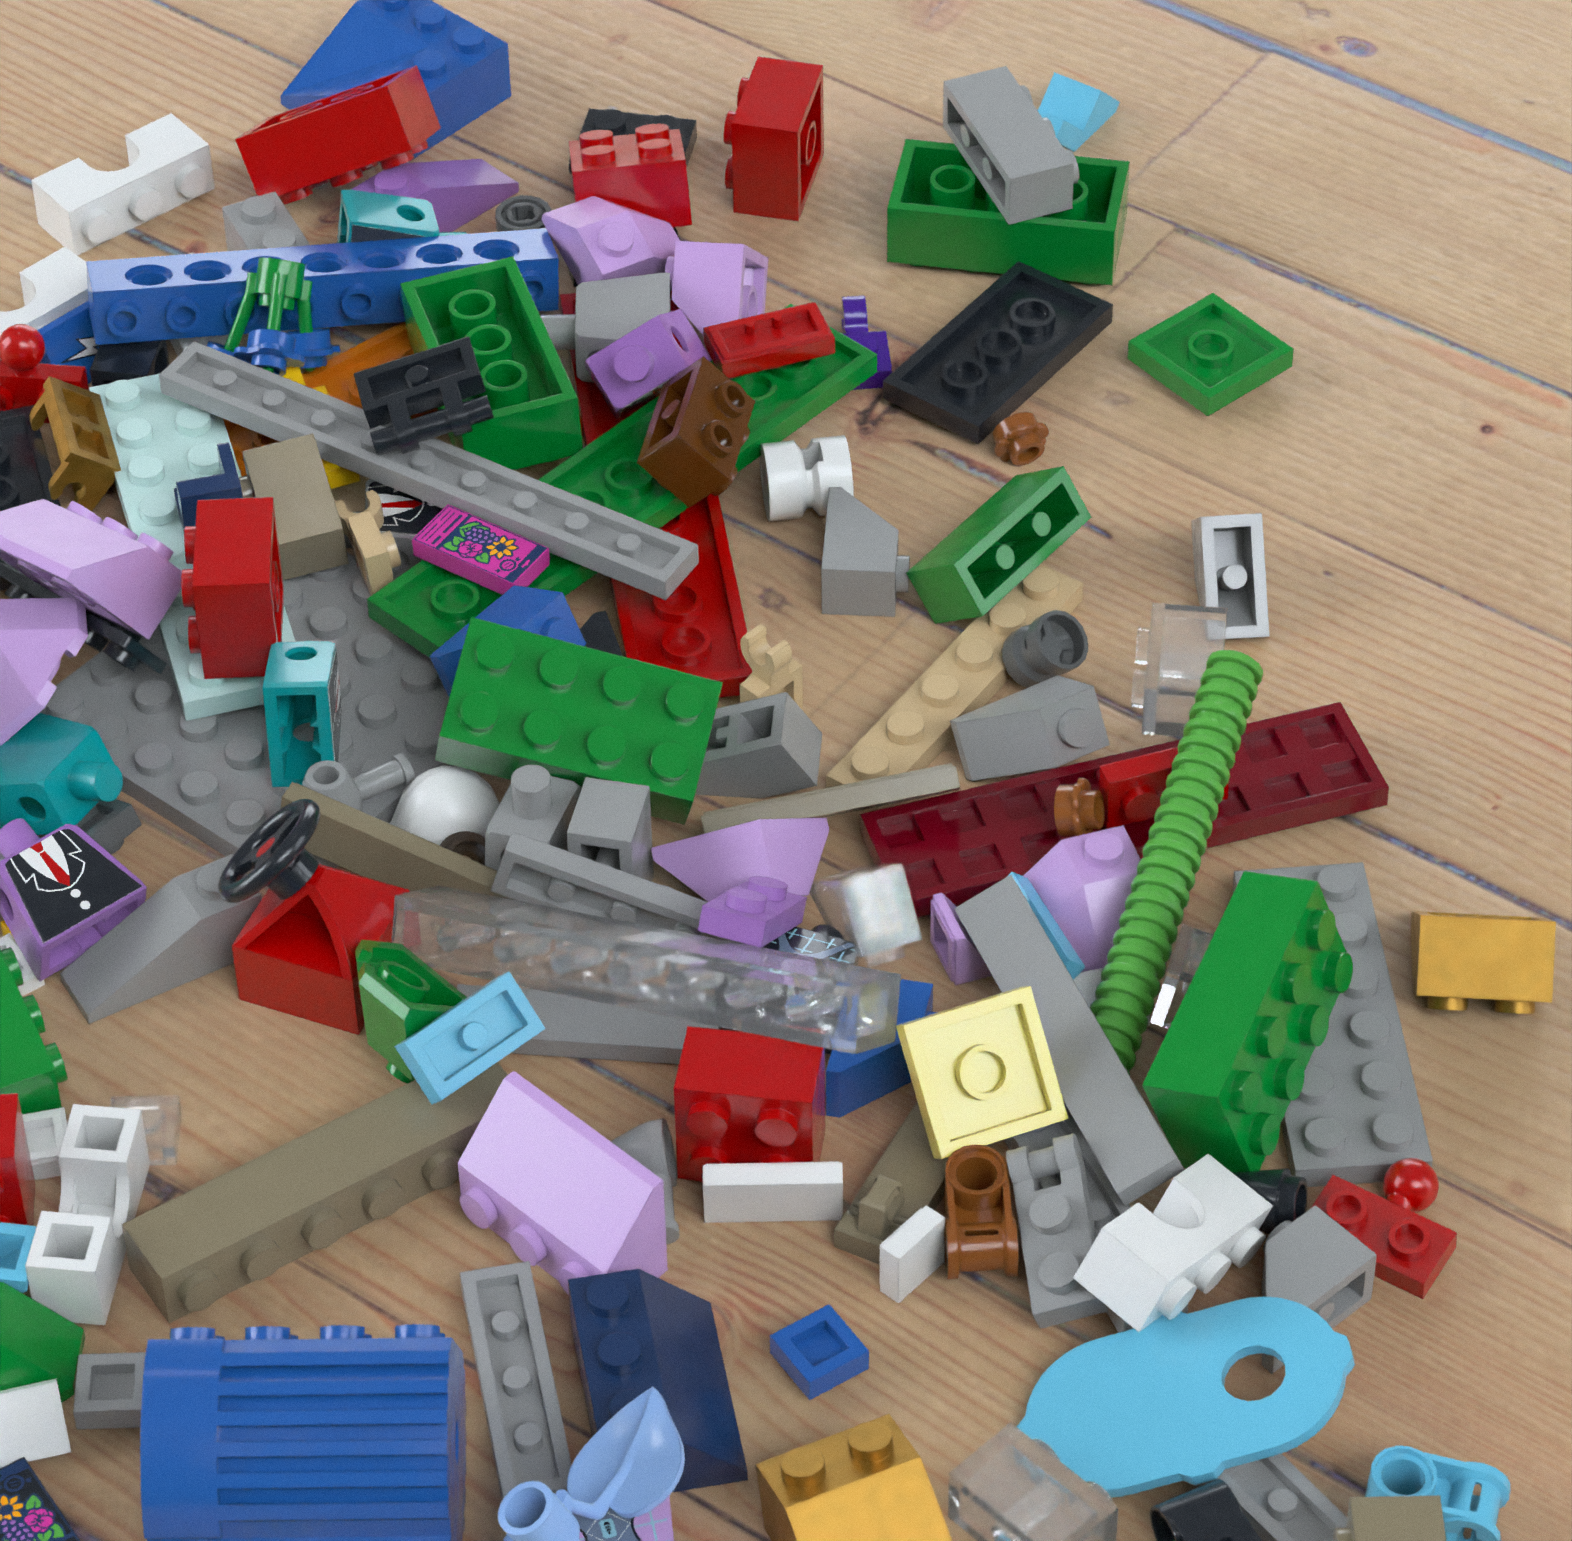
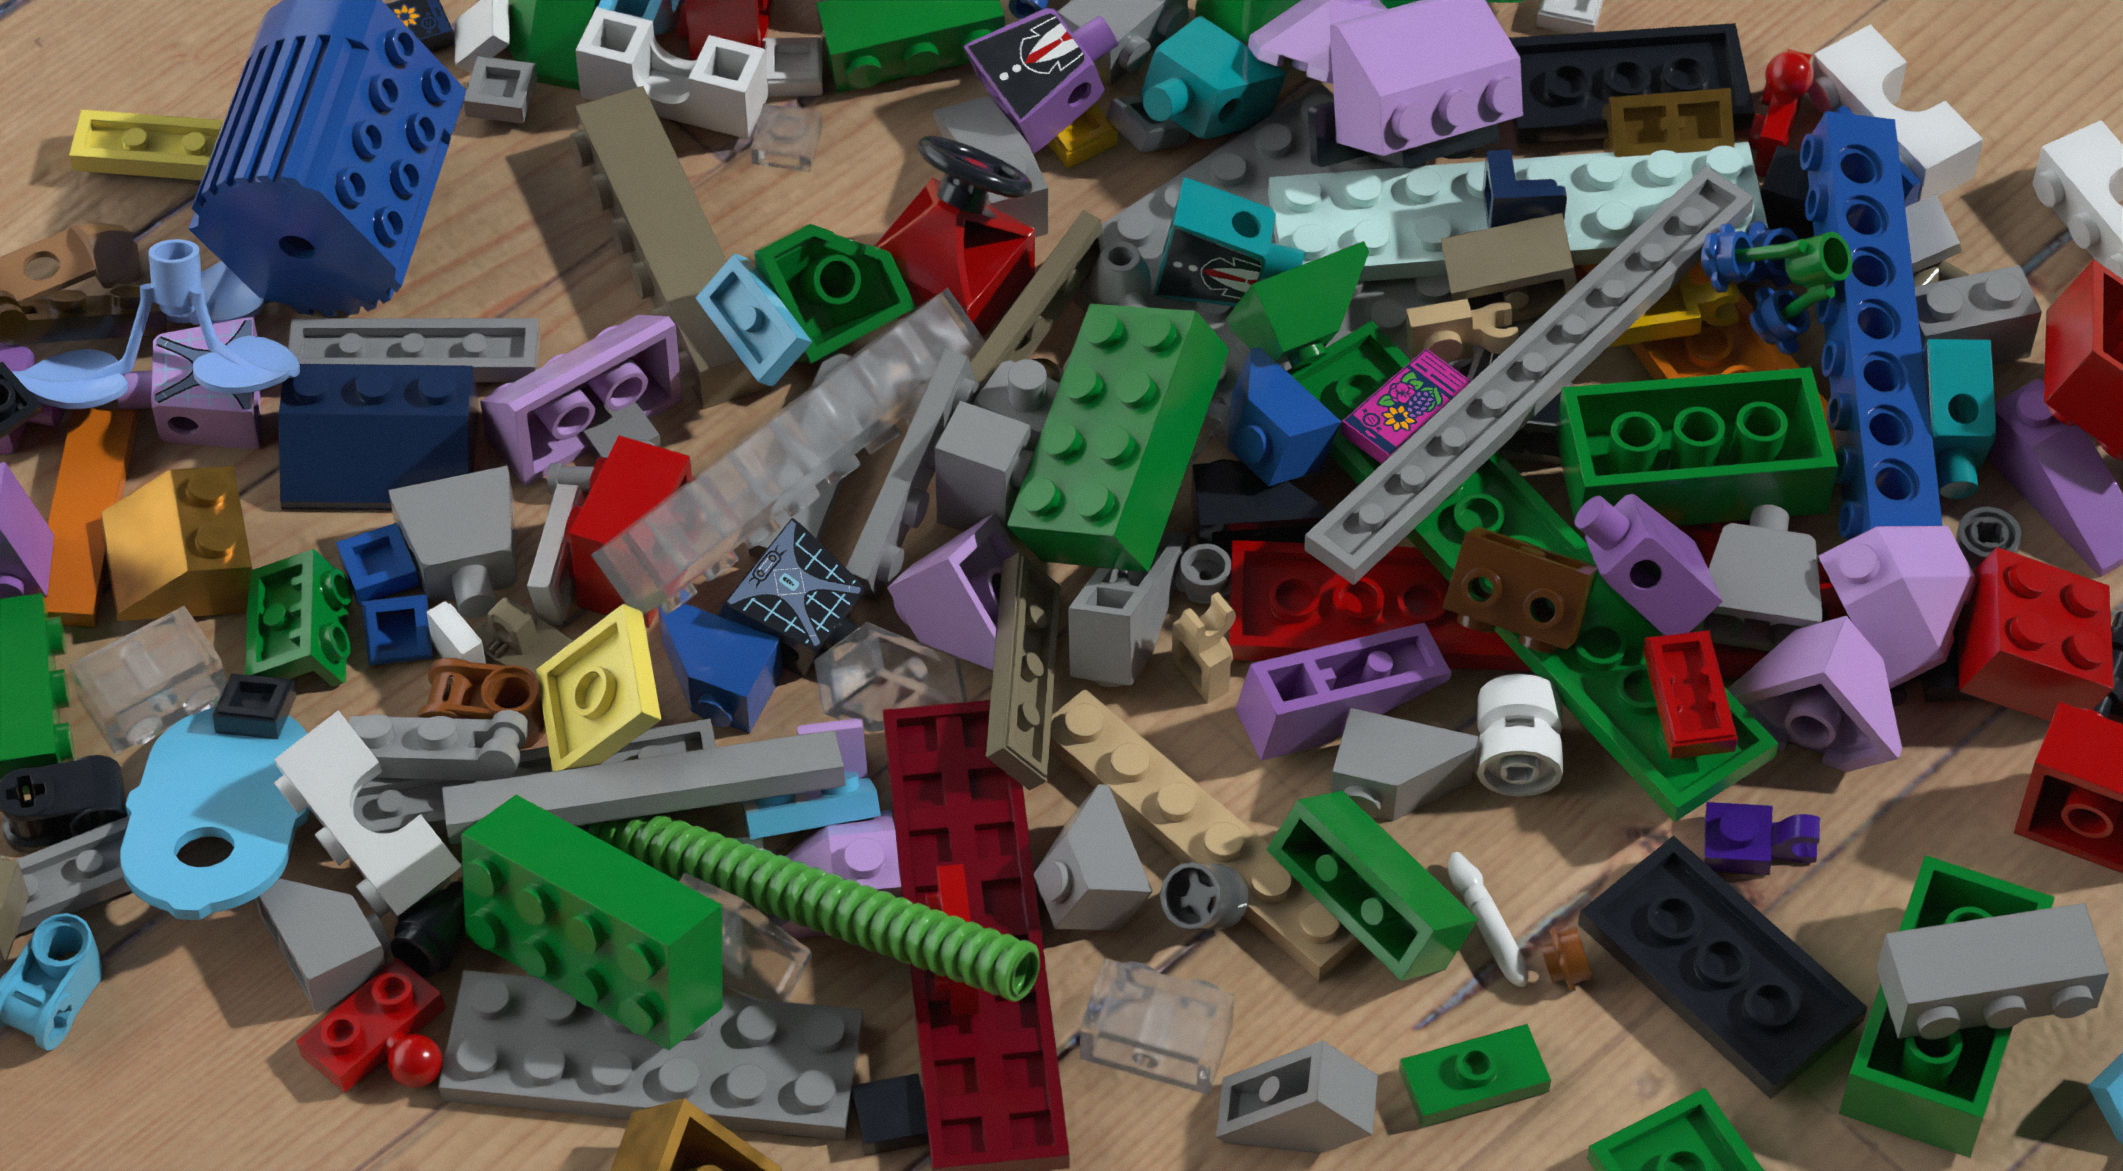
camera: 100 degrees right, 10 degrees up
(233, 586) = (1344, 181): red brick -> none
(381, 630) = (1300, 308): none -> green slope
(419, 384) = (1615, 352): black plate -> none
(753, 912) = (839, 544): medium lavender plate -> none
(769, 1275) = (460, 537): none -> light grey torso
(797, 592) = (1308, 694): none -> medium lavender slope
(890, 1326) = (397, 630): none -> blue slope
(933, 1400) = (298, 619): none -> green bracket
(959, 509) = (1469, 883): none -> white piece
(1040, 1406) = (254, 706): none -> black tile
(1078, 809) = (936, 849): dark orange plate -> none
(1151, 486) = (1474, 1075): none -> green plate
(1329, 839) = (891, 1114): none -> black tile

